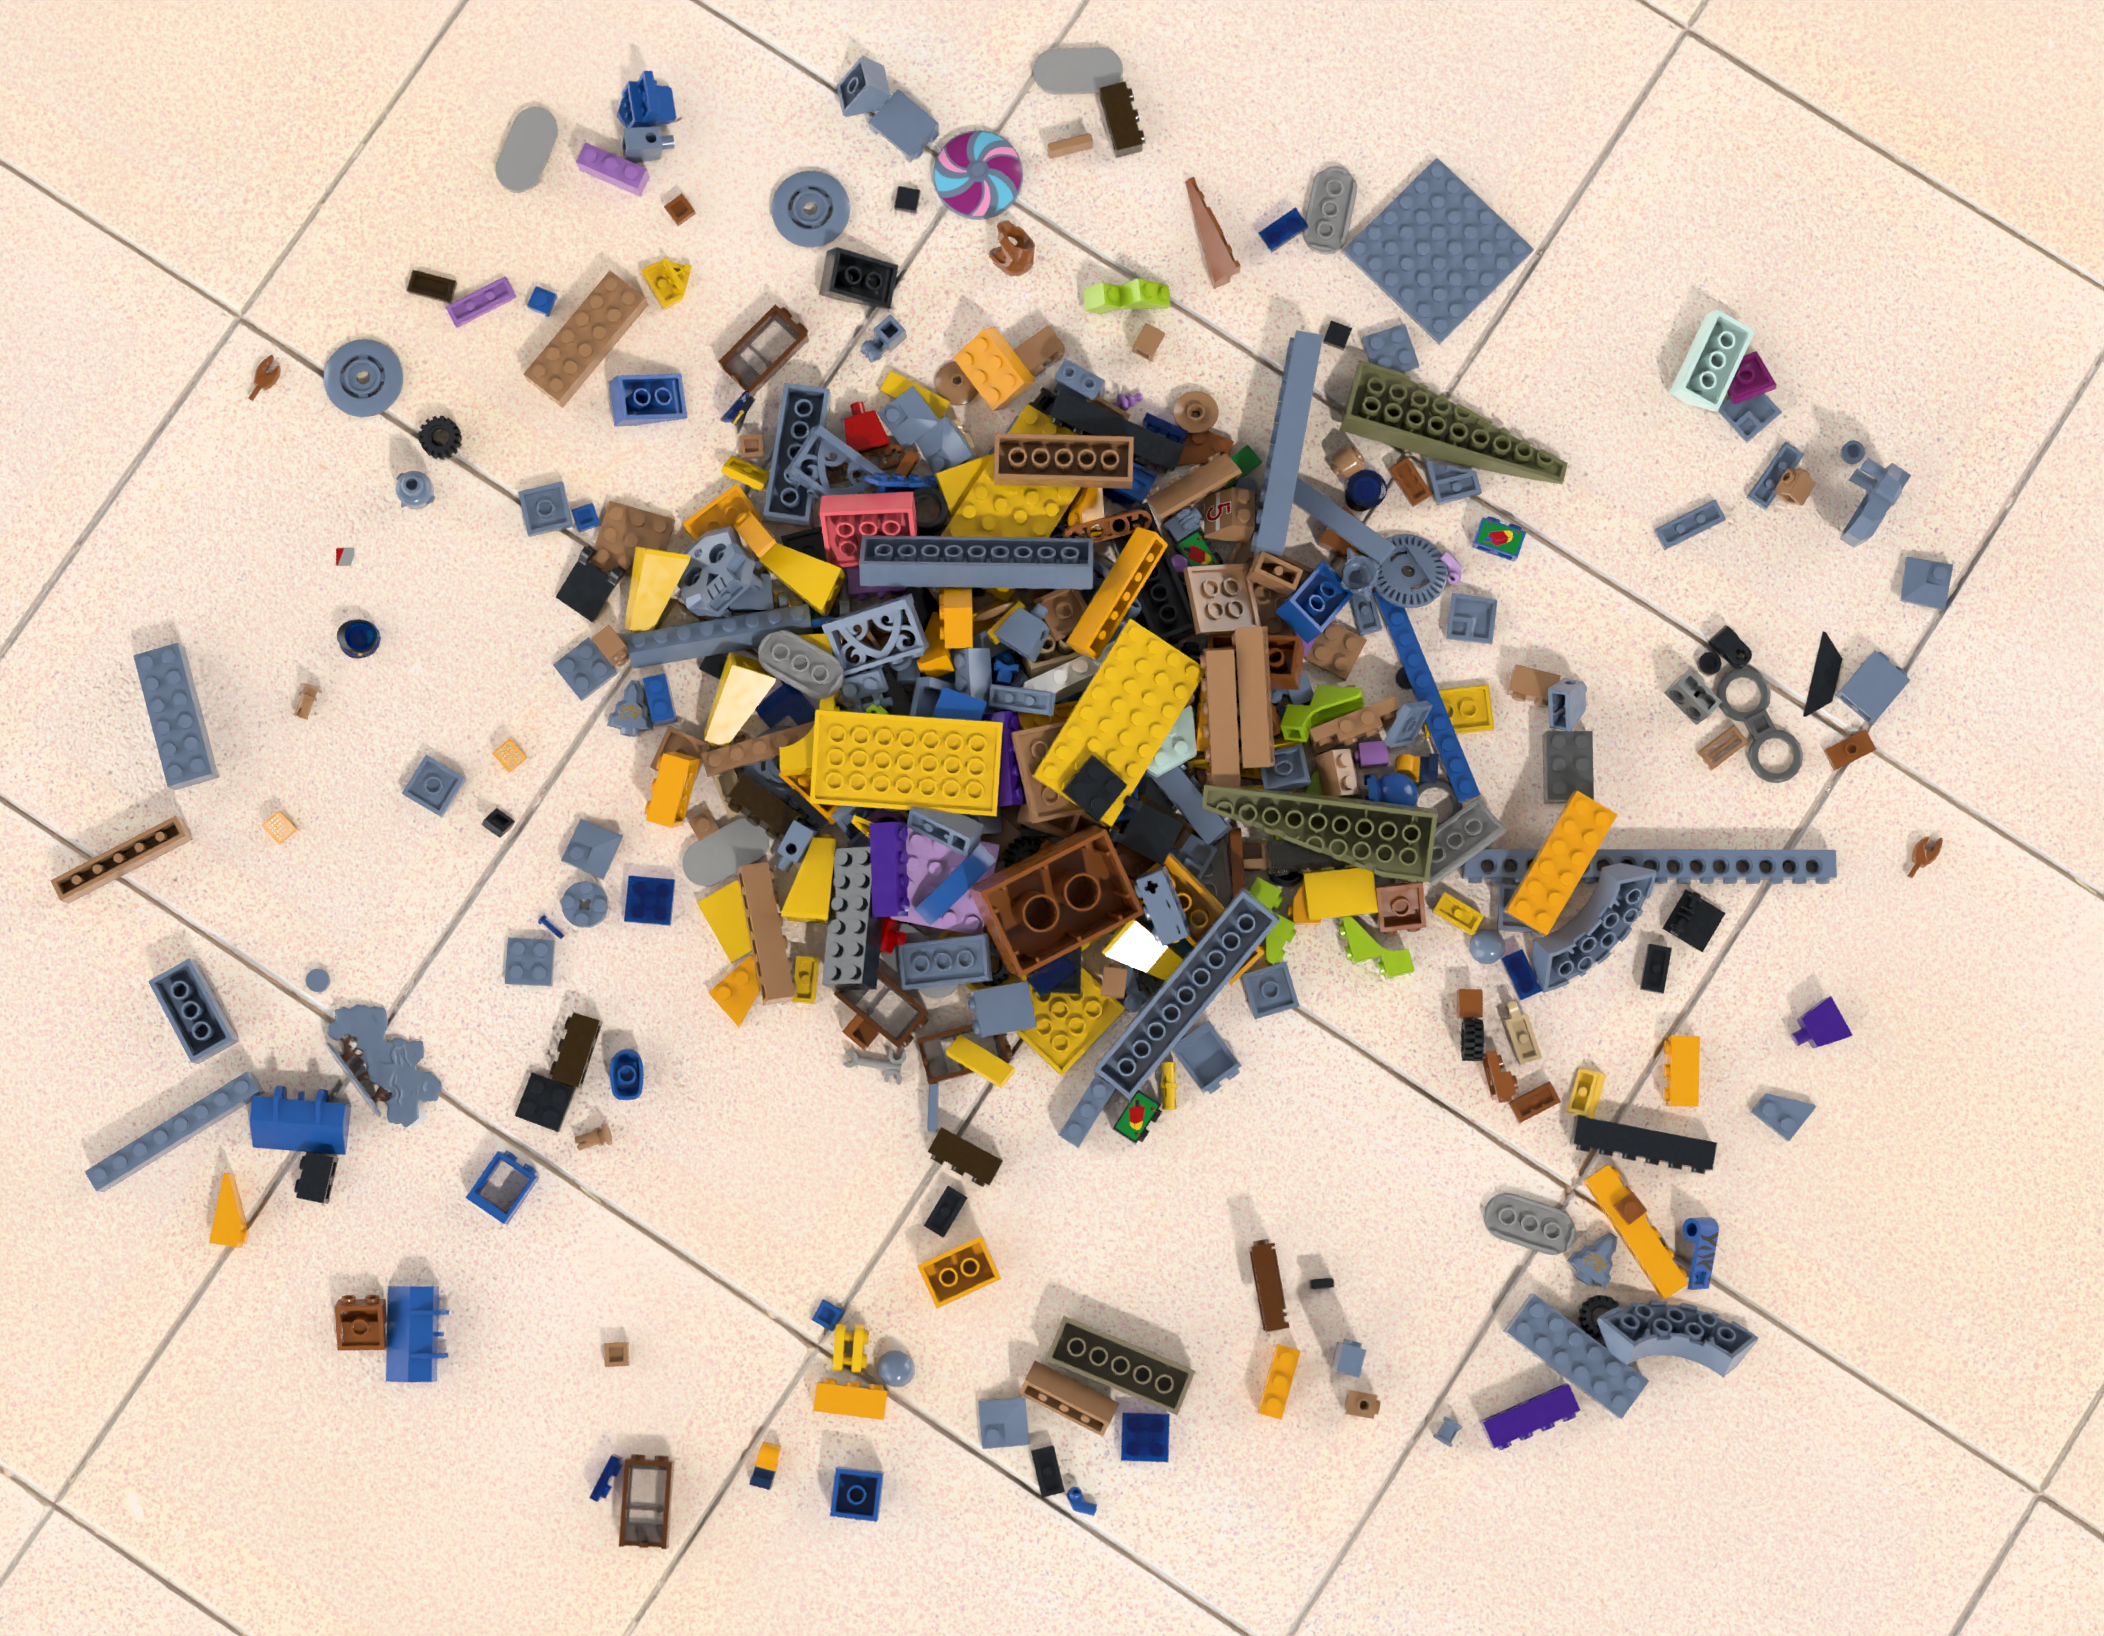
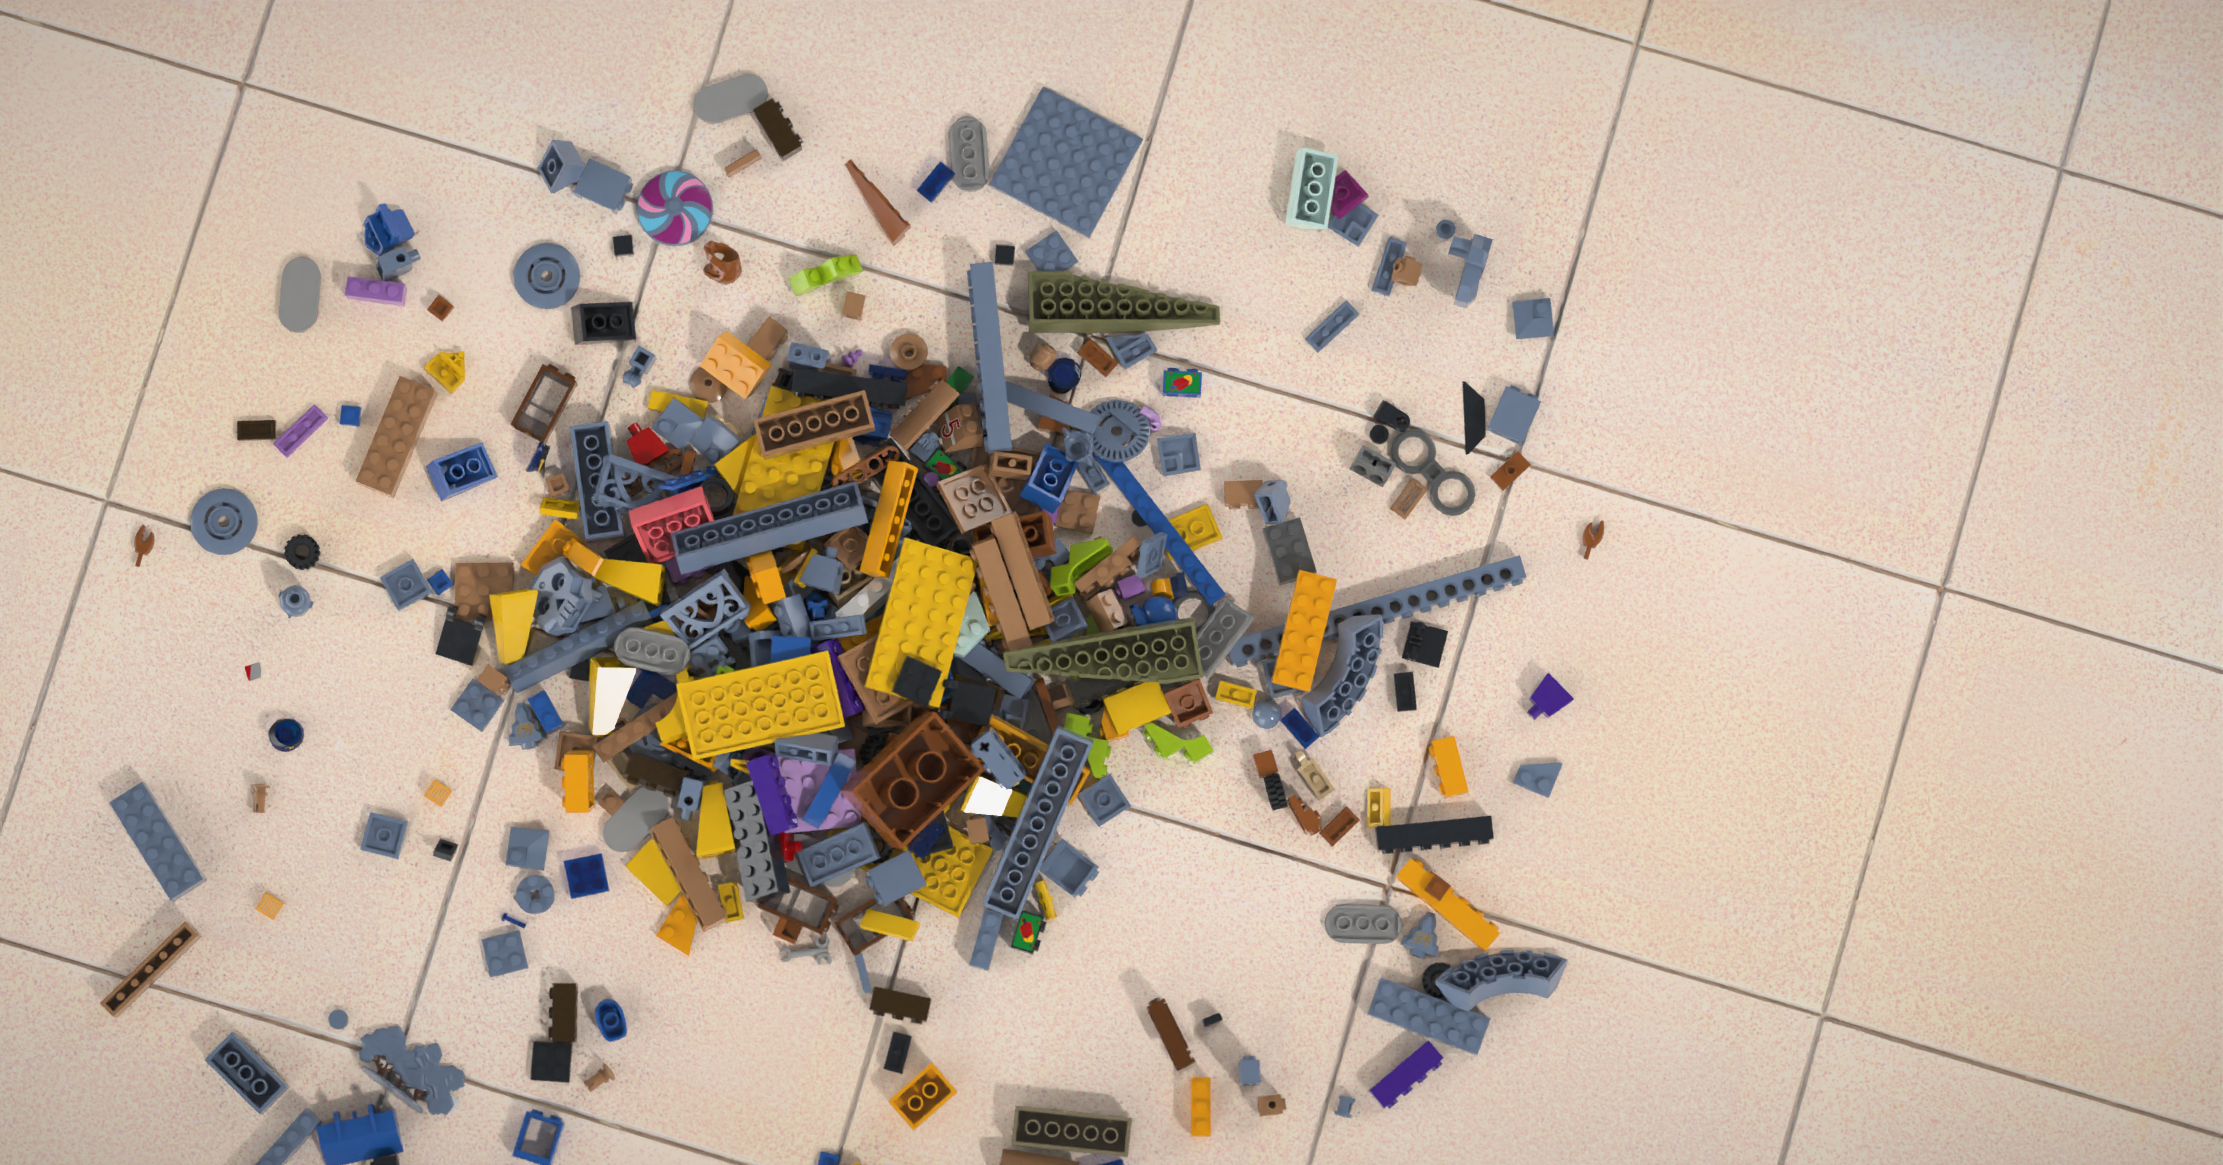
camera: 20 degrees left, 0 degrees up
(1704, 1233) = (1502, 891): blue door -> none

